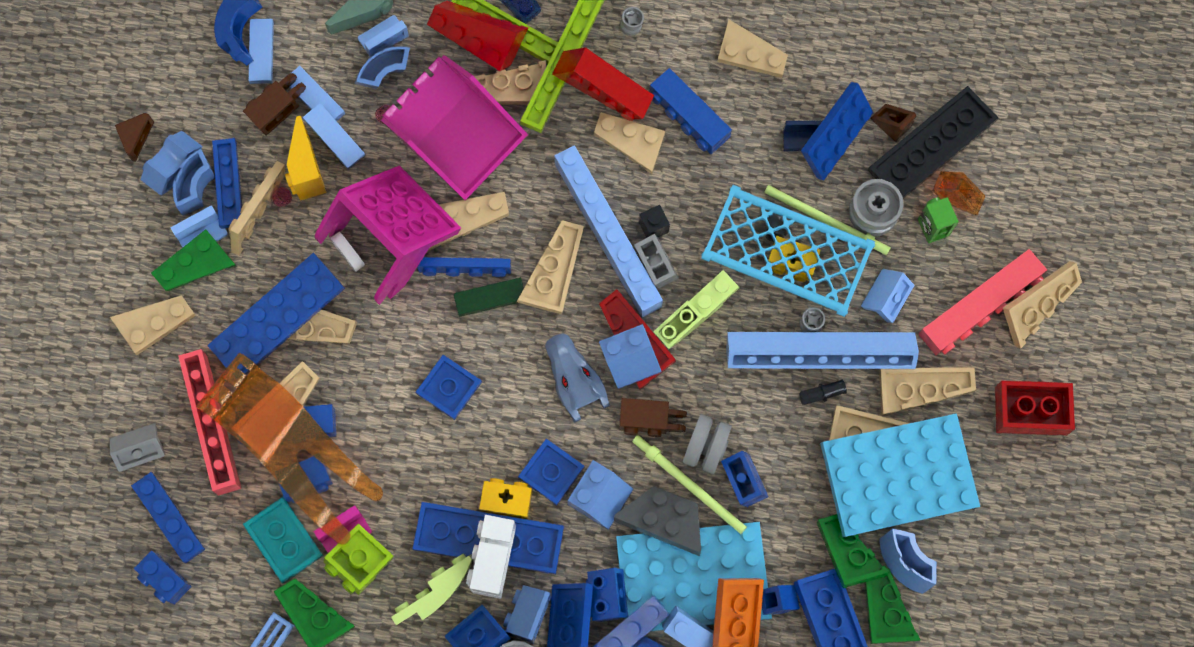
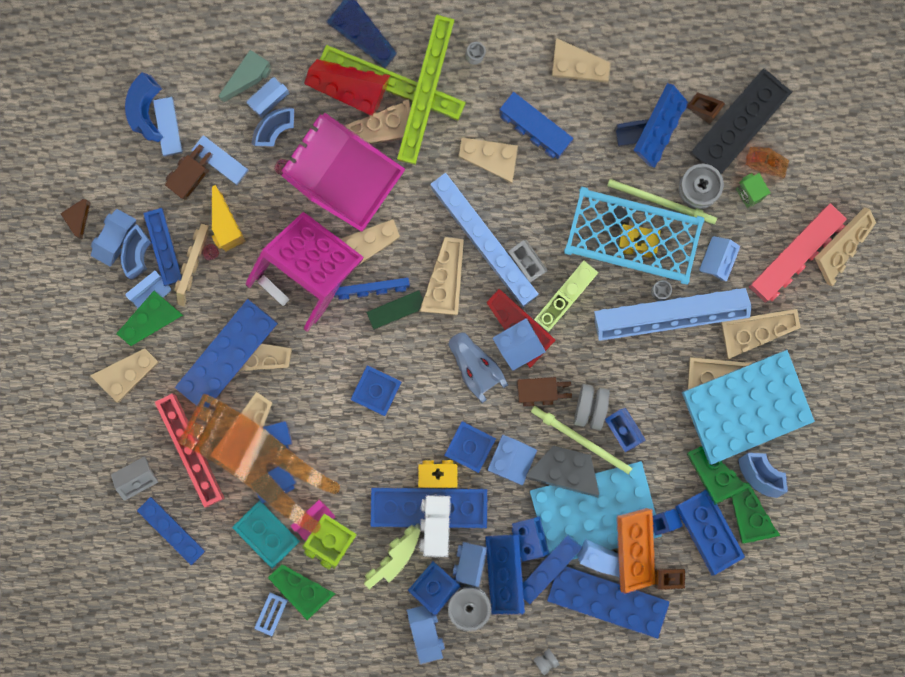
camera: 10 degrees left, 10 degrees up
(162, 577) = (177, 580): blue brick -> none
(333, 136) = (243, 193): light blue tile -> none
(603, 82) = (460, 115): red wedge -> none
(654, 222) = (521, 227): black brick -> none
(822, 392) = (677, 348): black axle -> none
(1034, 408) = (849, 335): red brick -> none

